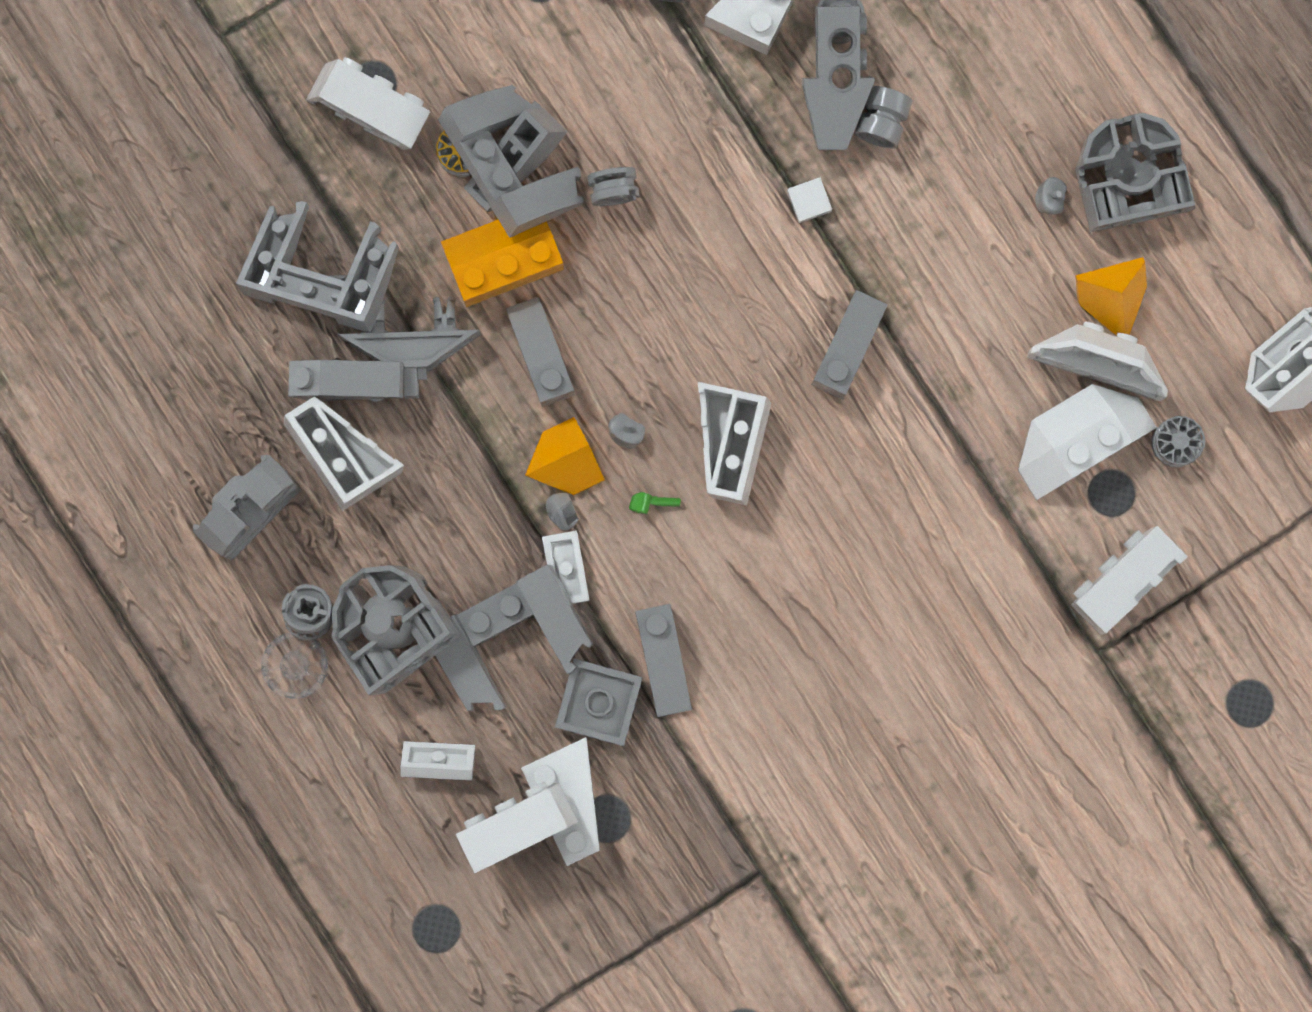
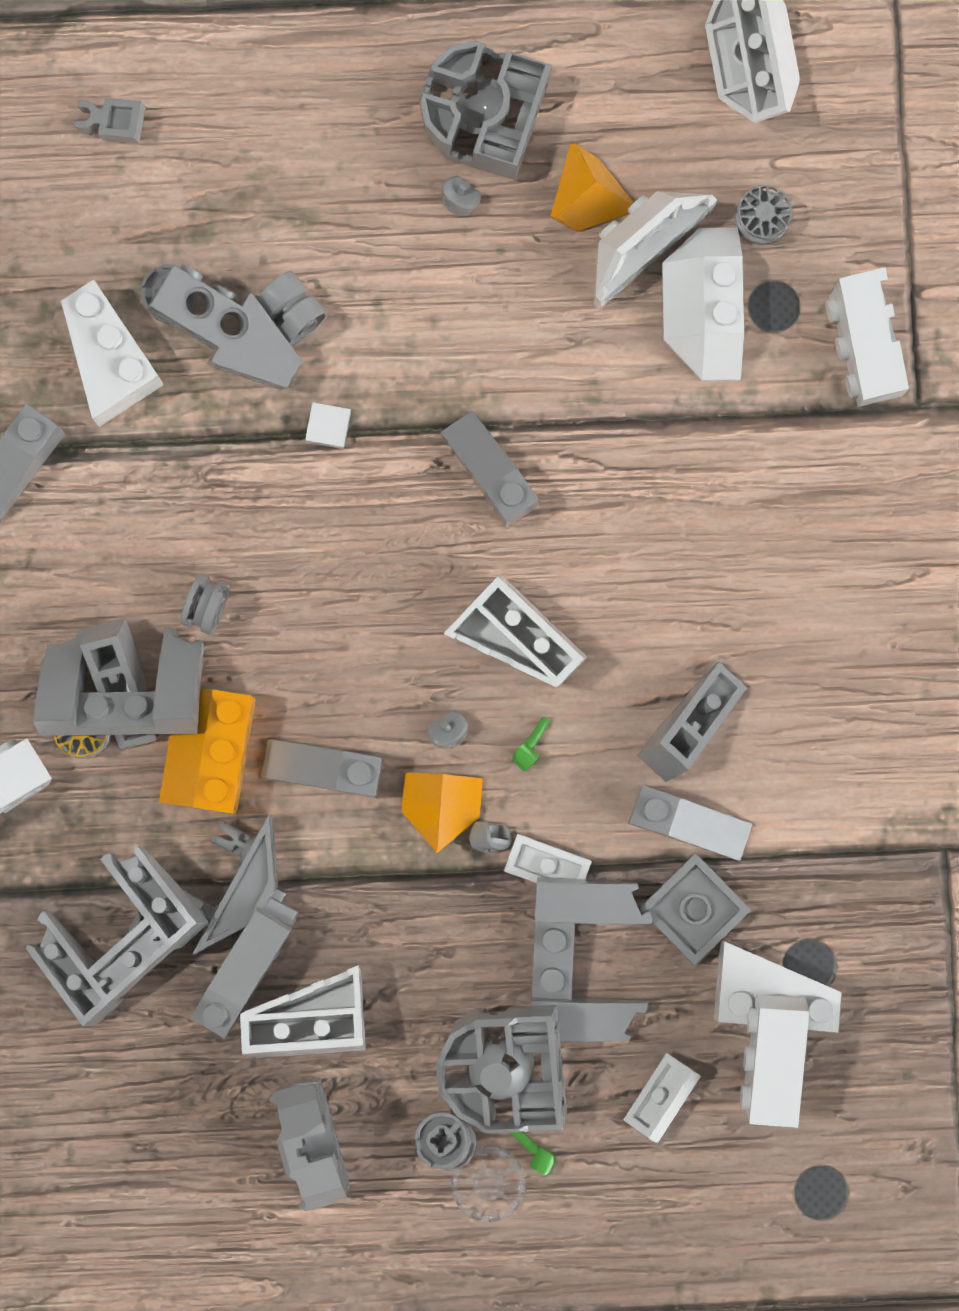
camera: 55 degrees left, 0 degrees up
(338, 696) = (543, 1159): none -> bright green hand
(743, 617) = (692, 723): none -> light grey slope

